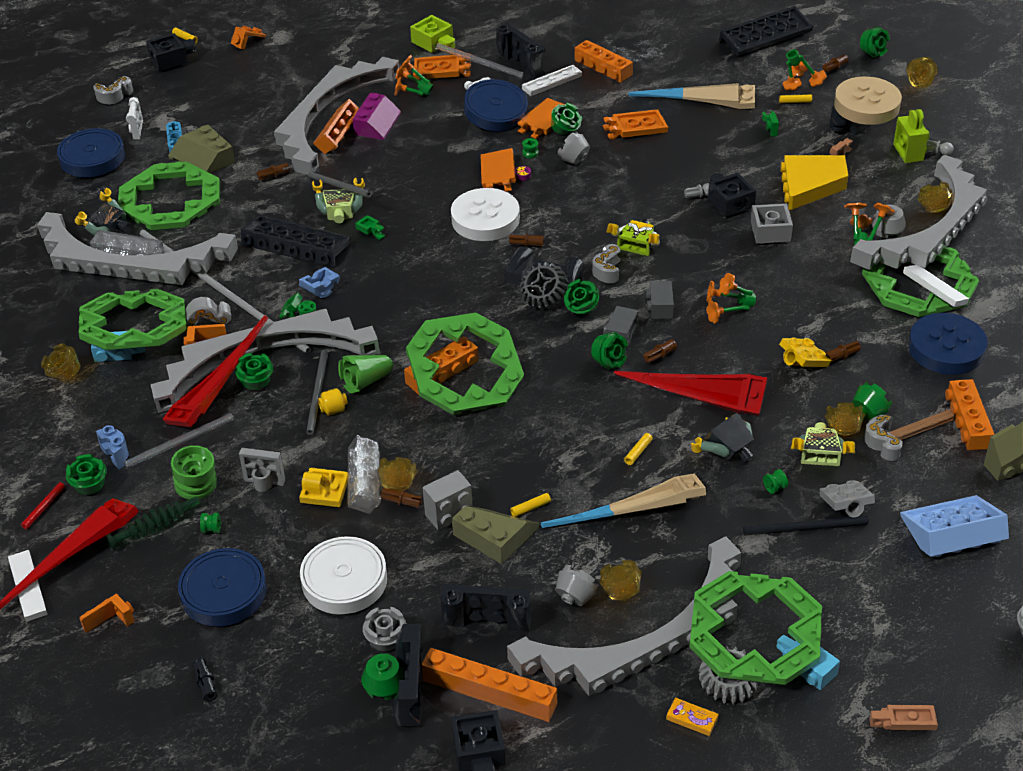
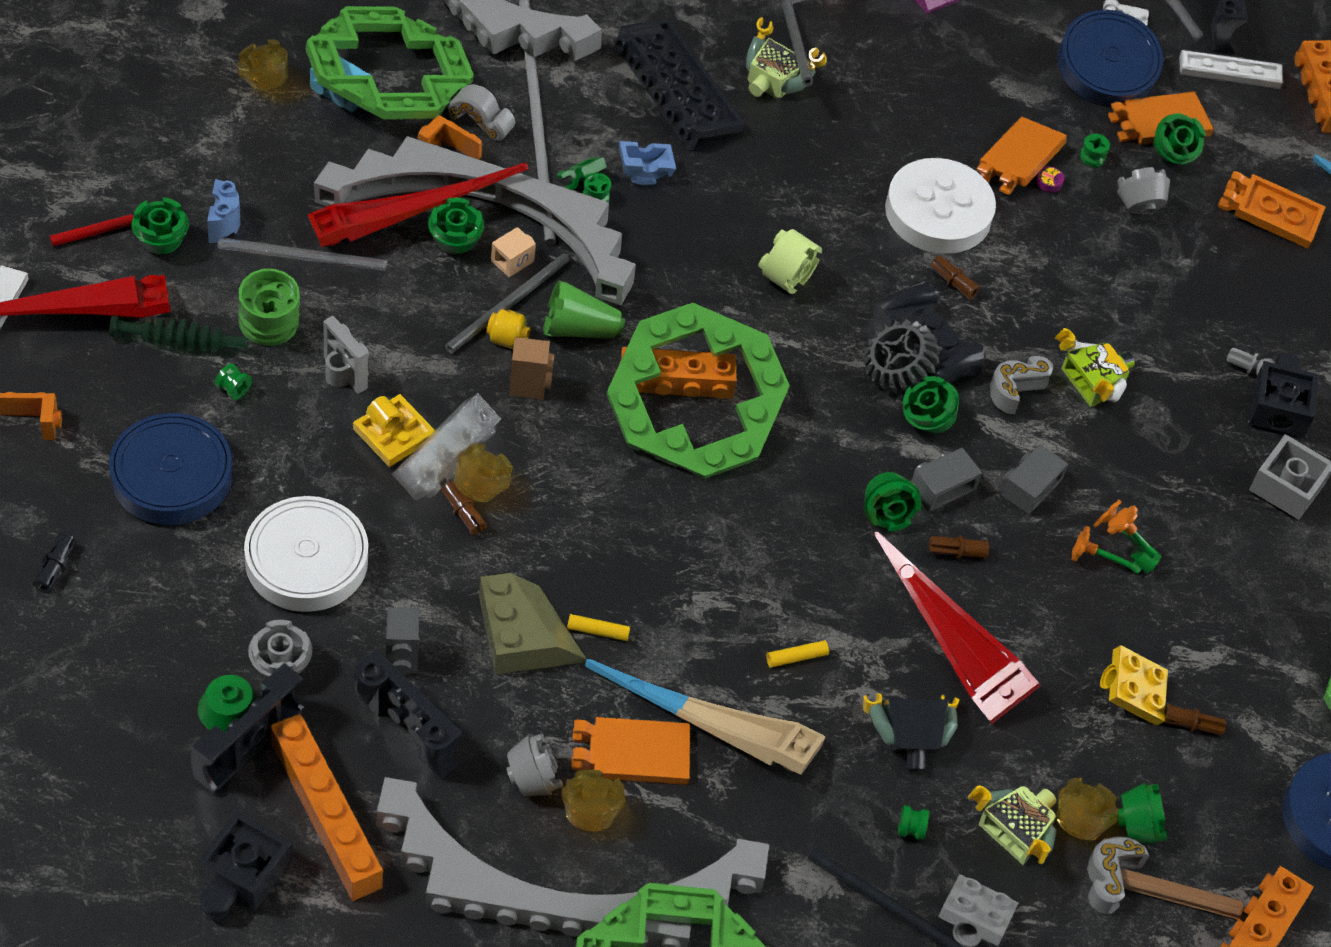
camera: 30 degrees right, 10 degrees up
(295, 365) = (513, 252): none -> light nougat brick
(368, 409) = (531, 368): none -> medium nougat brick
(370, 225) = (783, 123): green plate -> none
(440, 571) = (403, 638): none -> dark grey brick
(444, 279) = (790, 260): none -> yellowish green brick
(446, 498) = (501, 547): light grey brick -> none
(610, 545) = (634, 749): none -> orange tile

